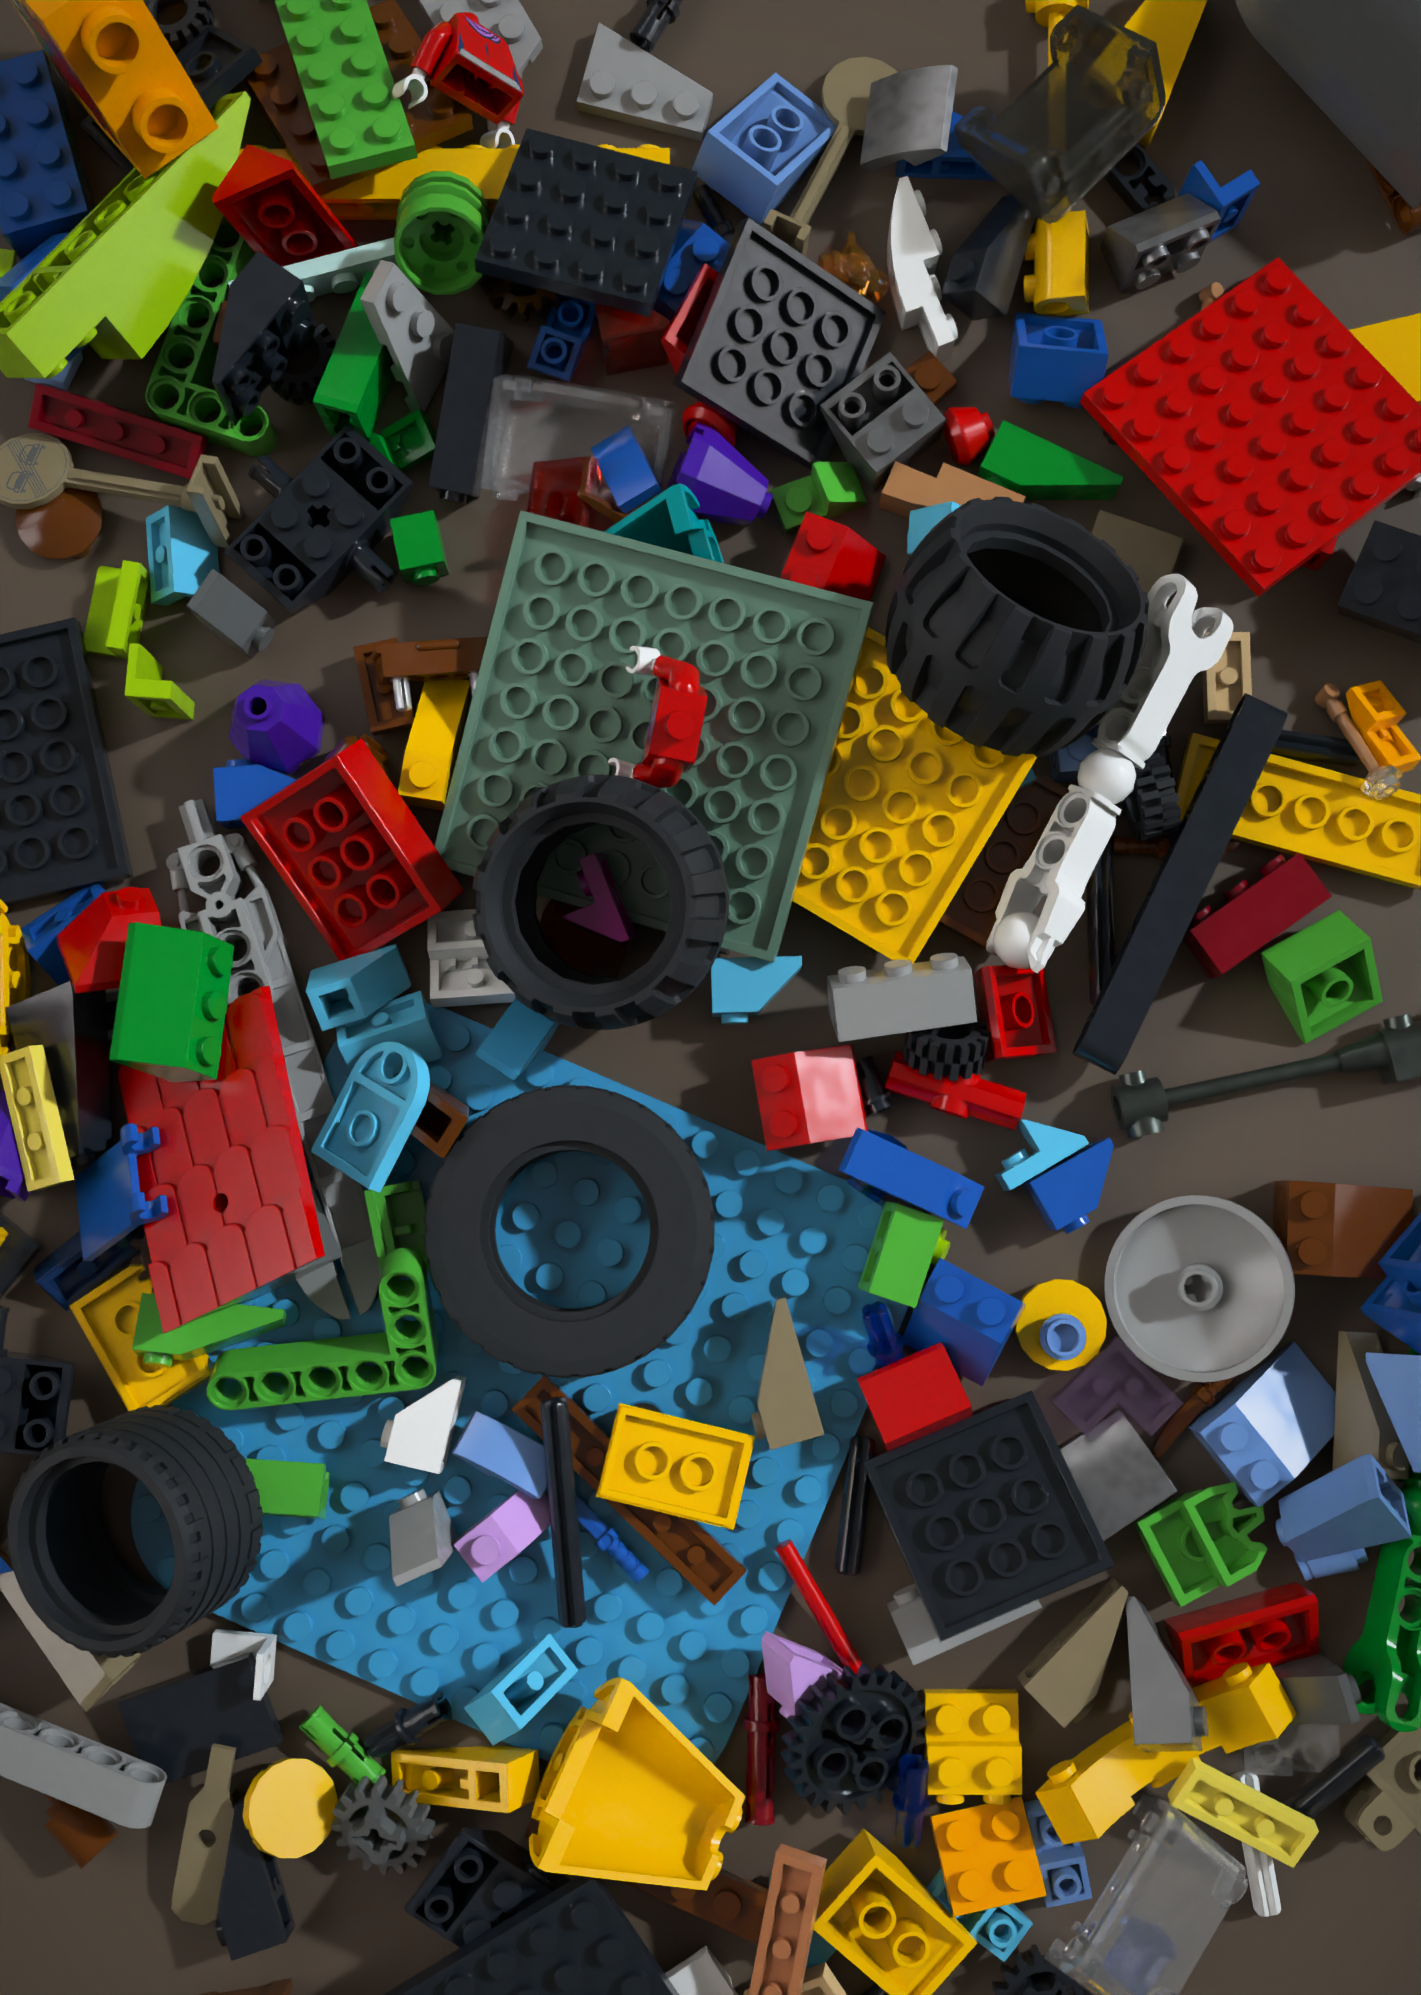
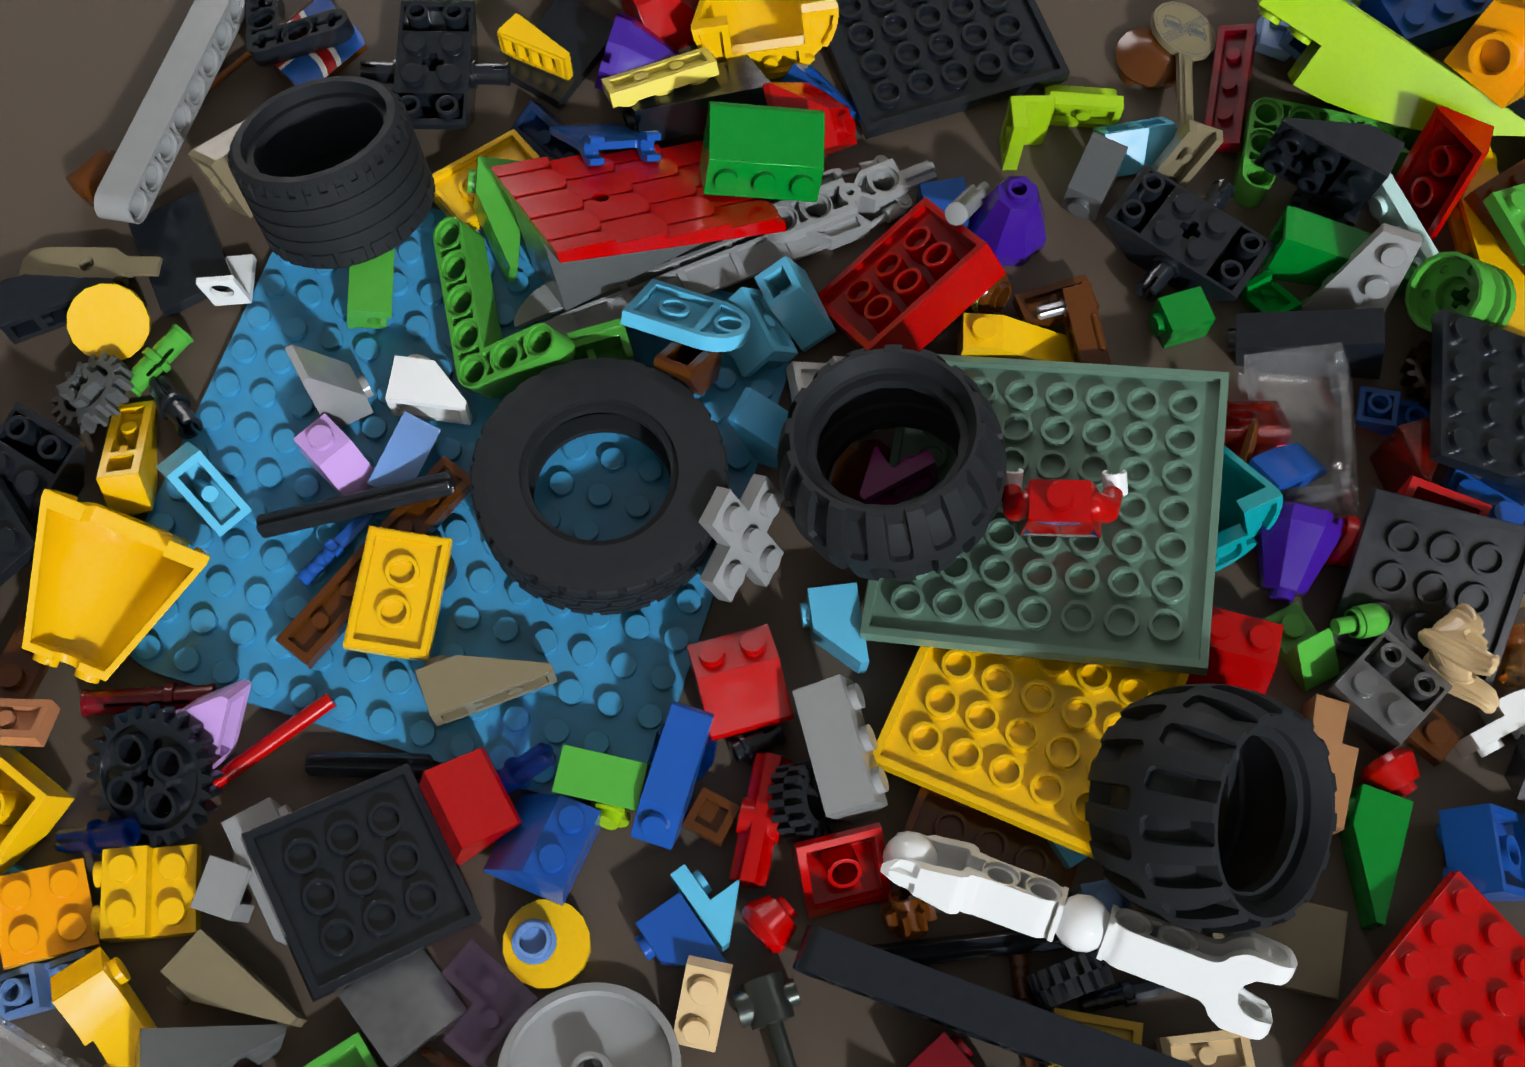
camera: 80 degrees right, 15 degrees down
(262, 768) = (966, 204): none -> light grey axle
(652, 1077) = (741, 537): none -> light grey plate
(811, 428) = (1362, 621): none -> bright green cylinder
(857, 347) = (1460, 653): none -> tan hair
(946, 1141) = (711, 817): none -> reddish brown plate
(983, 1662) = (223, 889): none -> light grey panel
(1062, 1091) = (771, 921): none -> red cone
(1071, 955) = (906, 914): none -> reddish brown gear
(1139, 1168) = (702, 1003): none -> tan plate

